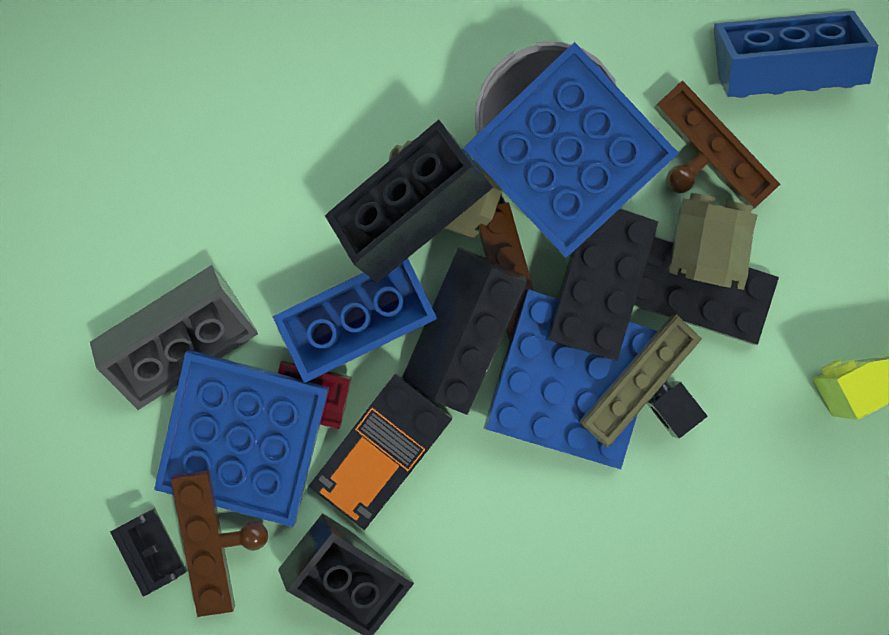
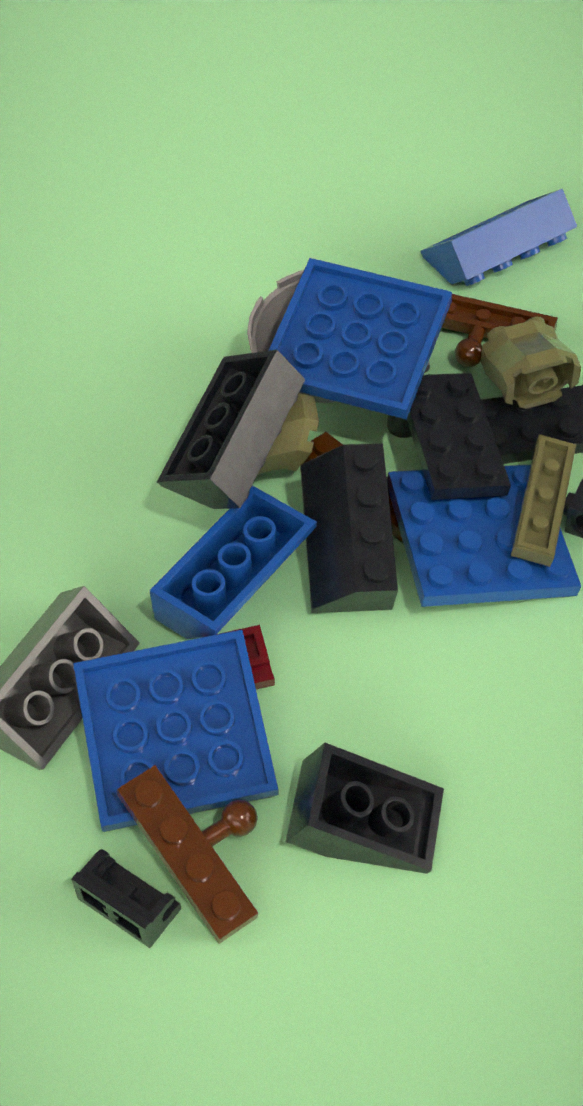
camera: 30 degrees left, 35 degrees down
(380, 451) = (329, 674): slope -> none

